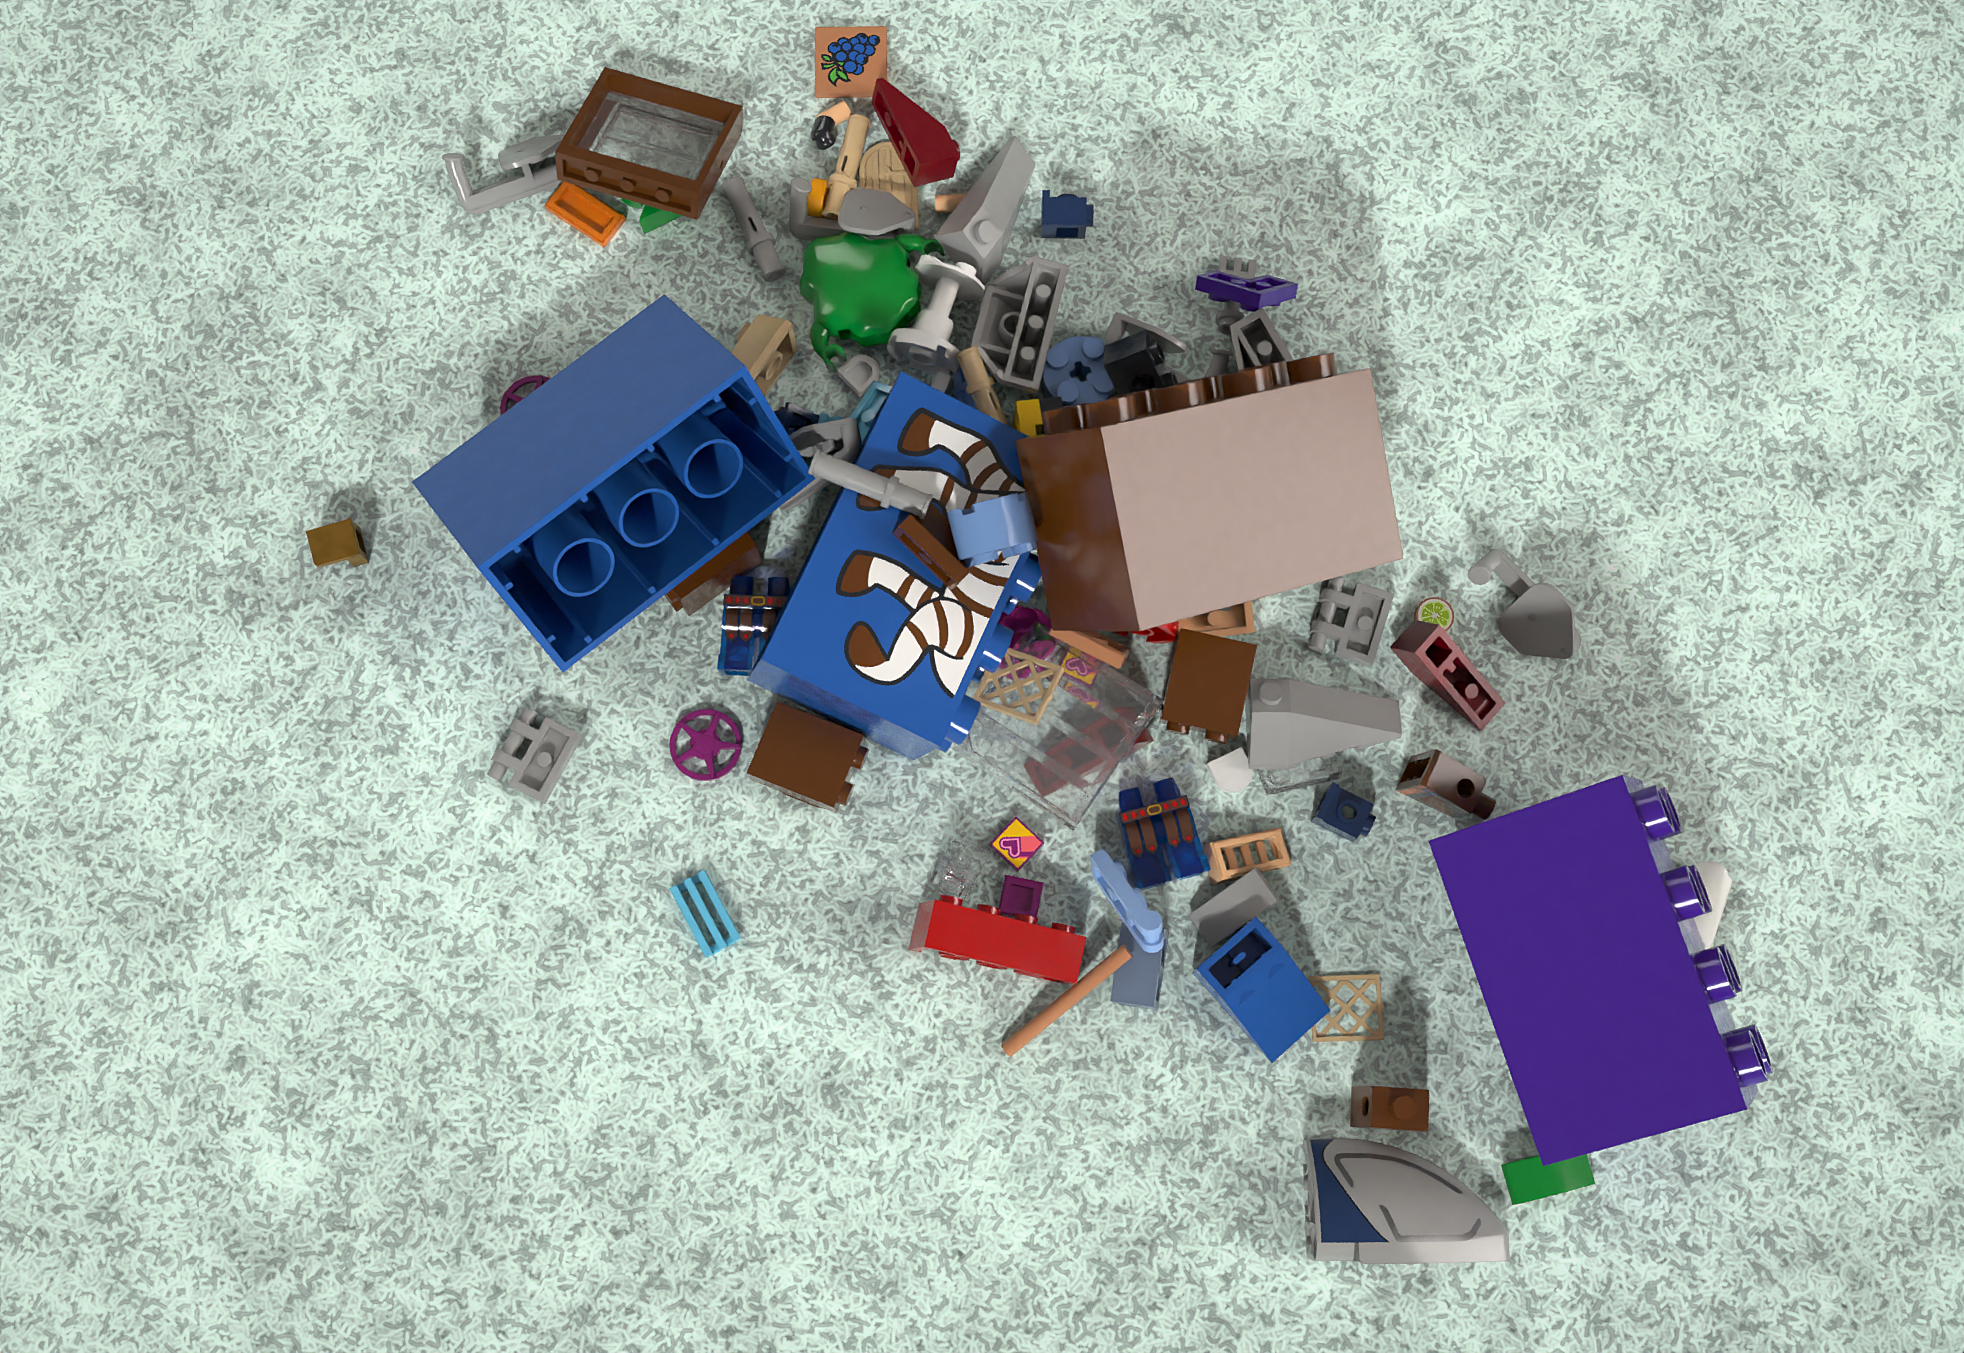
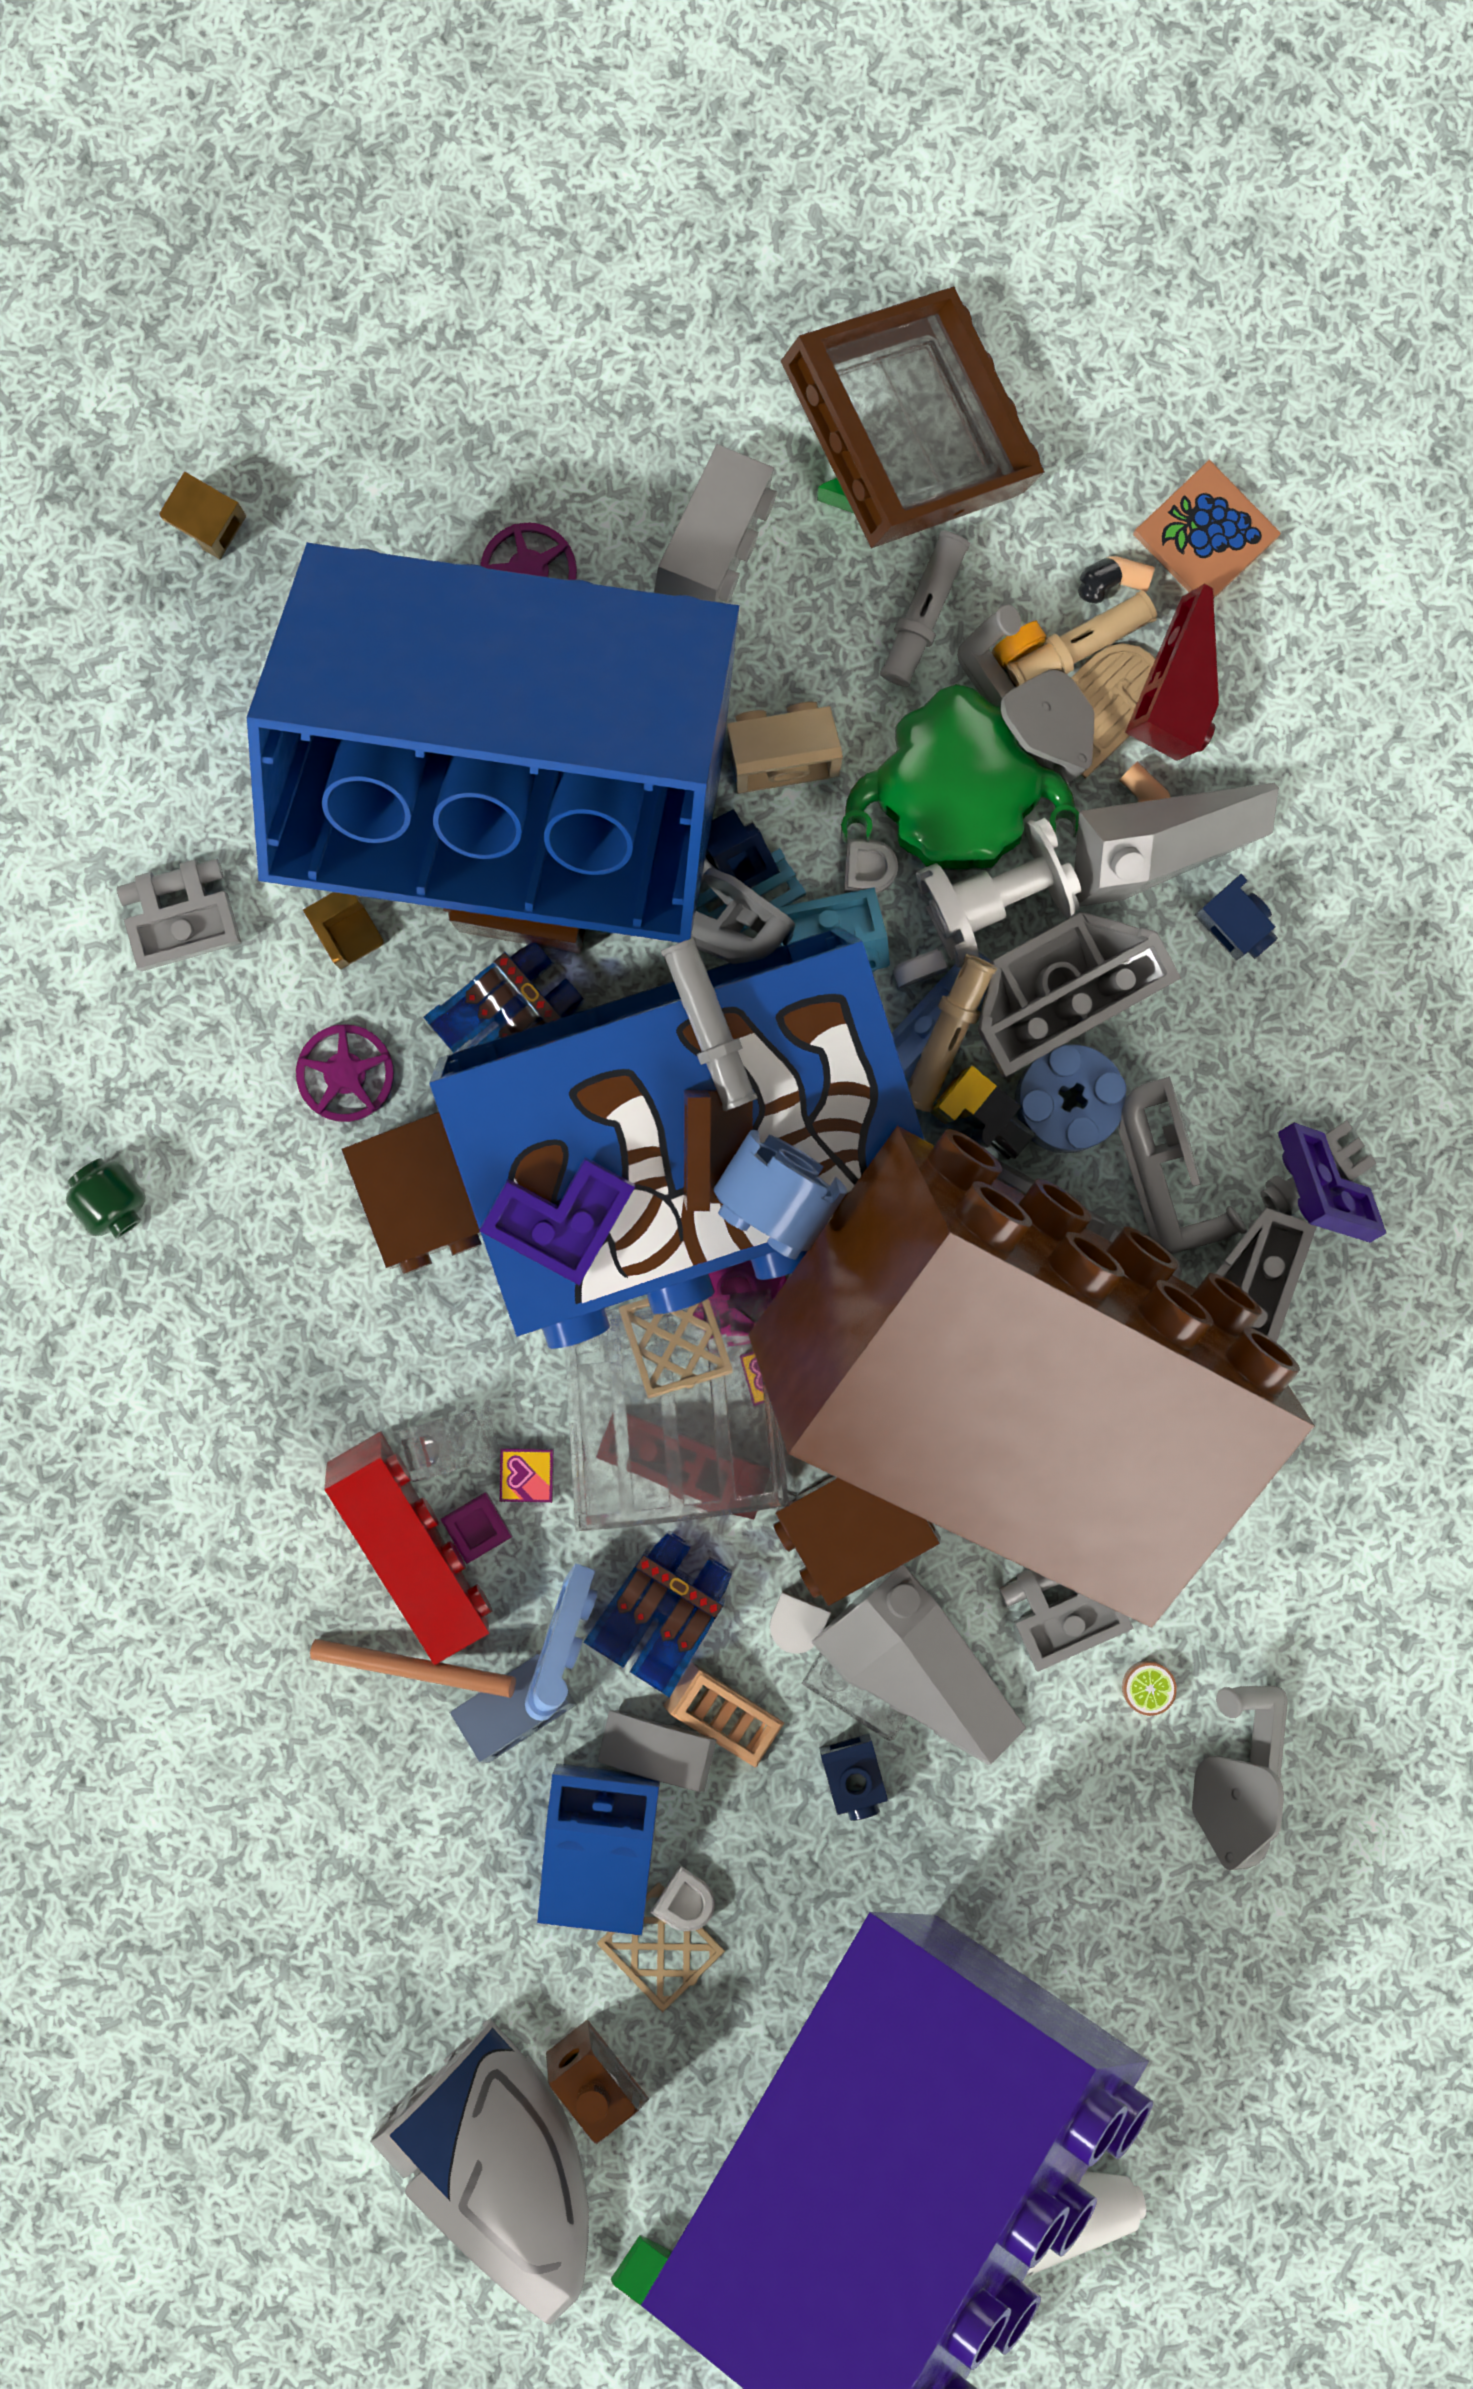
camera: 50 degrees right, 10 degrees up
(512, 188) = (767, 296): light grey piece -> none
(585, 213) = (781, 421): orange tile -> none
(607, 283) = (717, 528): none -> light grey wedge
(626, 671) = (343, 928): none -> pearl gold panel
(649, 935) = (105, 1198): none -> dark green head
(689, 884) = (159, 1225): medium azure tile -> none
(910, 662) = (564, 1234): none -> dark purple plate
(1133, 357) = (1123, 1165): black brick -> none
(1332, 969) = (685, 1902): none -> white tile
(1445, 785) = (973, 1857): reddish brown torso -> none
(1447, 672) = (1099, 1755): dark red slope -> none

